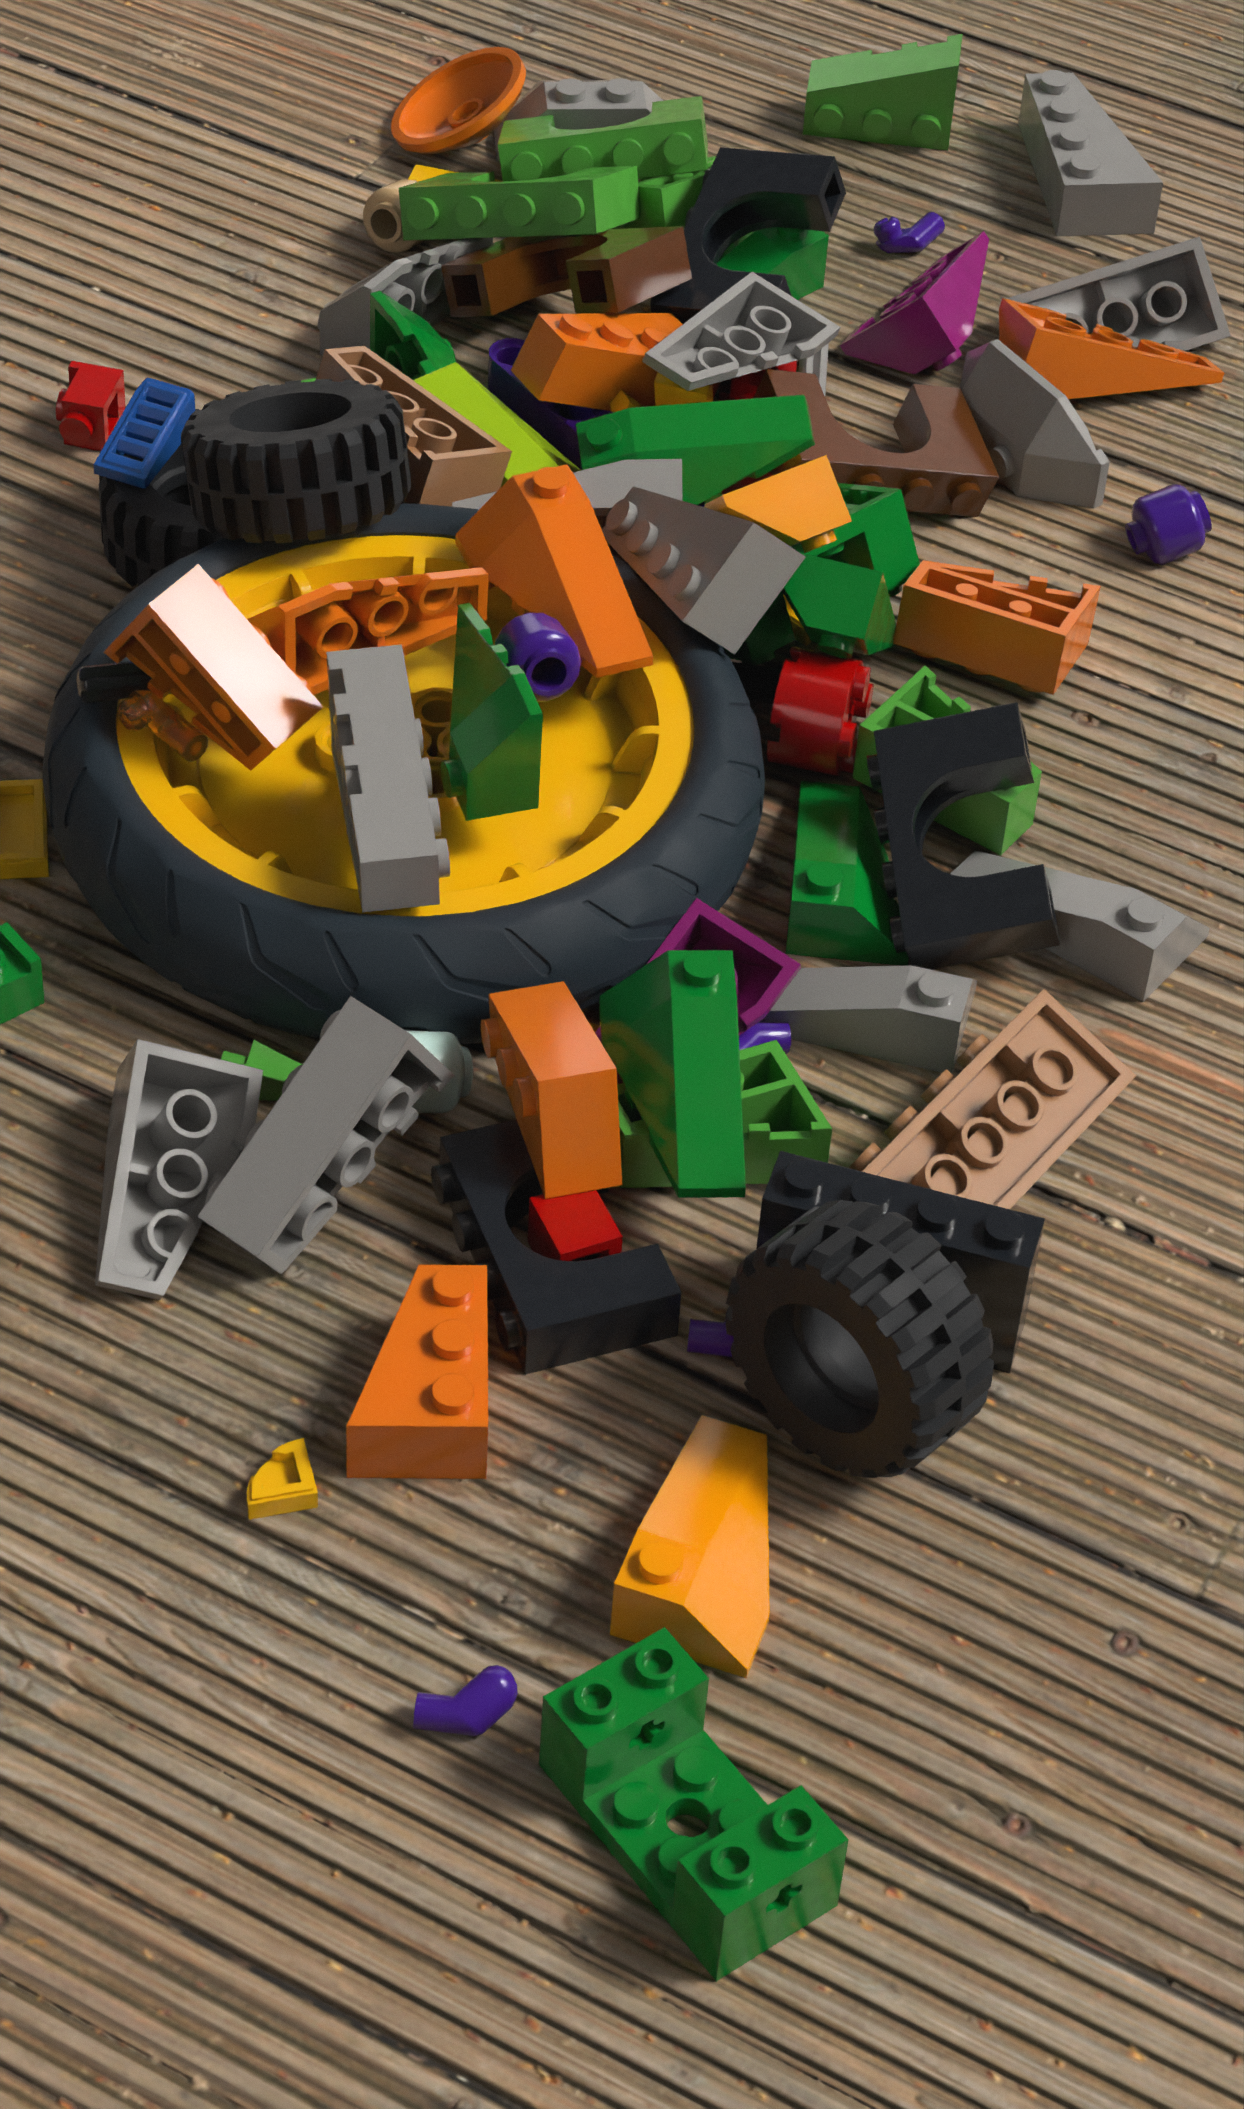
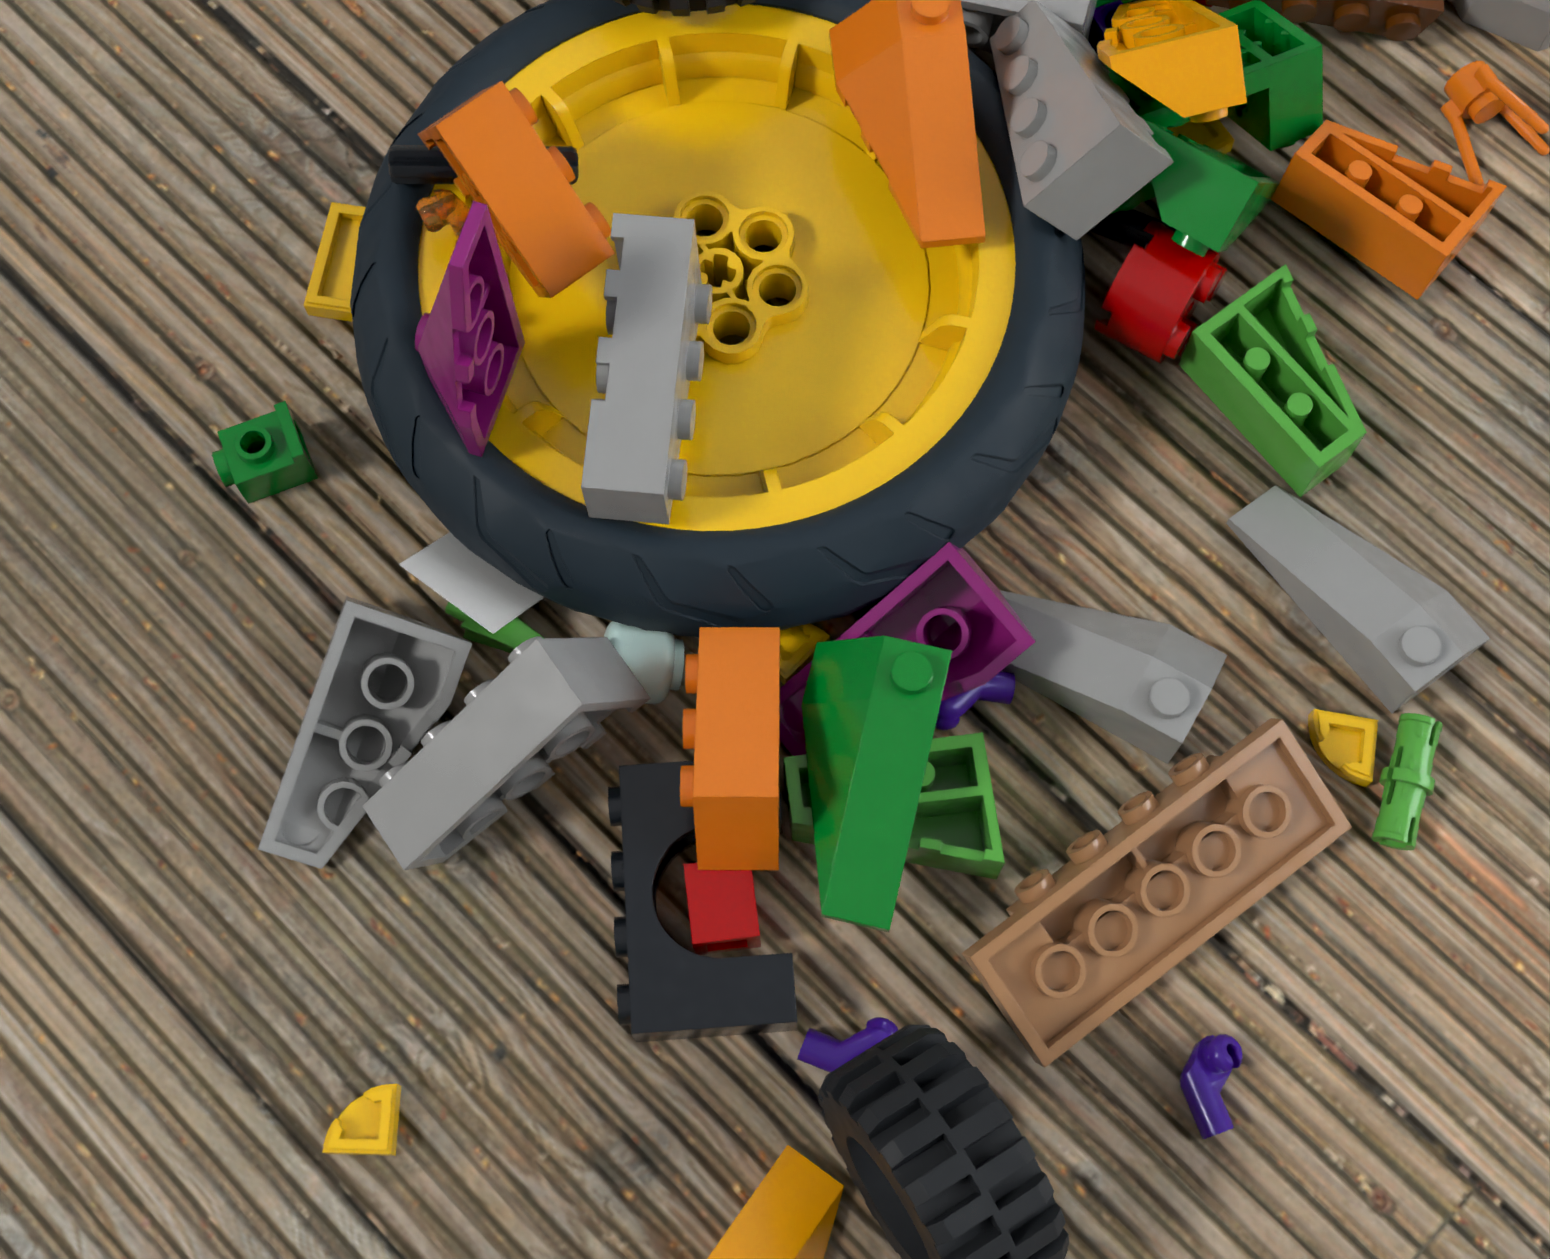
camera: 20 degrees right, 25 degrees up
(213, 762) = (472, 332): none -> magenta wedge
(245, 1031) = (470, 583): none -> white sticker
(369, 614) = (673, 146): orange wedge -> none
(429, 1385) = (532, 1053): orange wedge -> none
(492, 727) = (775, 312): green wedge -> none
(542, 652) = (861, 218): dark purple head -> none
(838, 880) = (1129, 503): green wedge -> none
(921, 773) = (1227, 420): black arch -> none
(988, 1242) = (1096, 1085): black arch -> none
(1052, 540) = (1480, 96): none -> orange plant
(1073, 1287) = (1204, 1079): none -> dark purple arm
(1112, 1024) = (1345, 744): none -> yellow tile
(1173, 1037) = (1407, 781): none -> bright green pin

